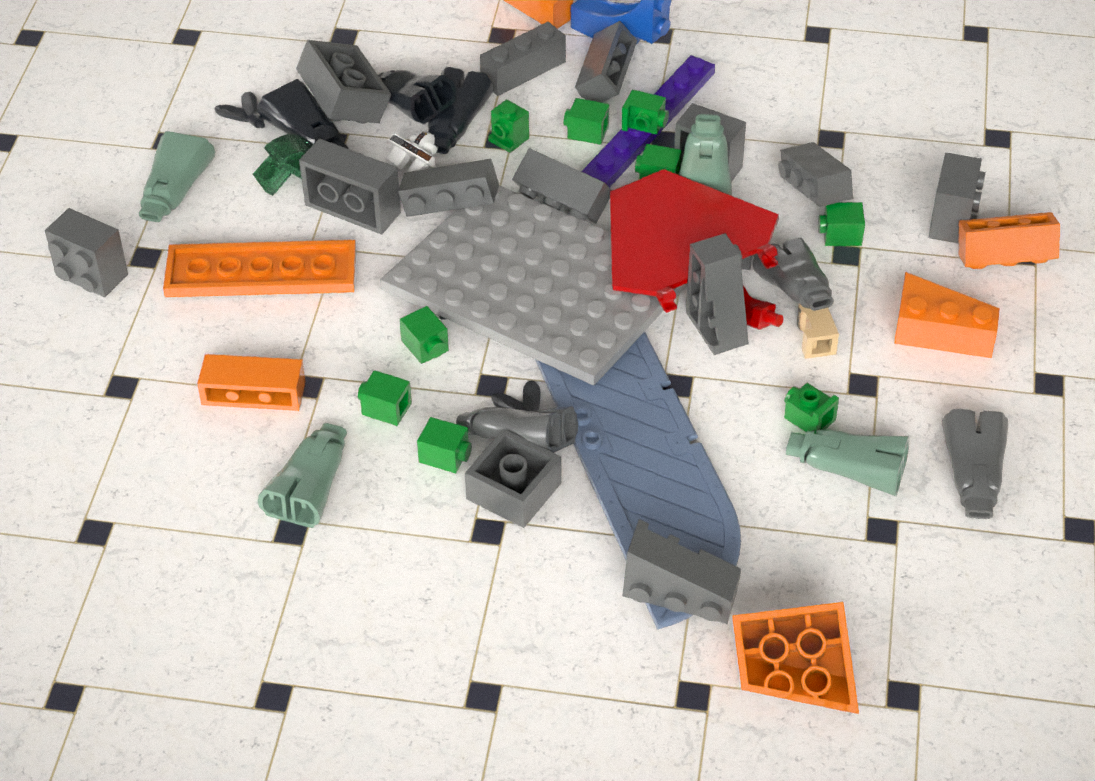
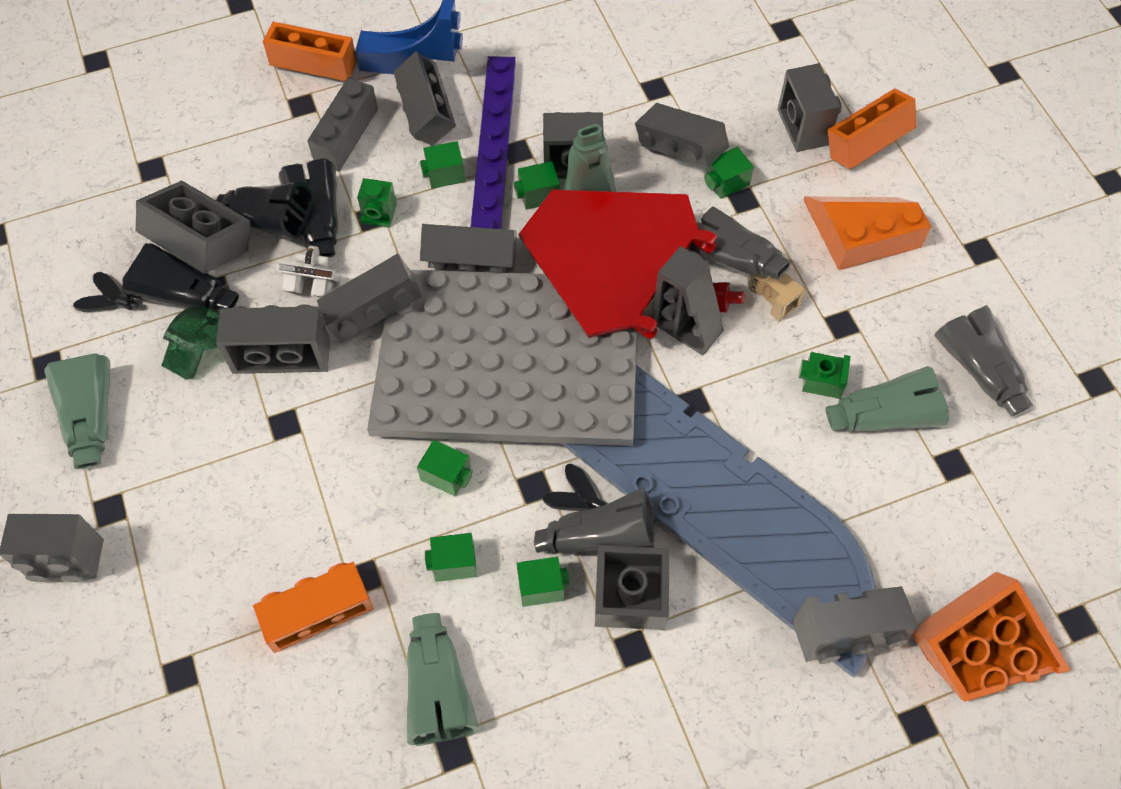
camera: 30 degrees left, 15 degrees up
(260, 268) = (235, 471): orange plate -> none
(644, 112) = (496, 136): green brick -> none

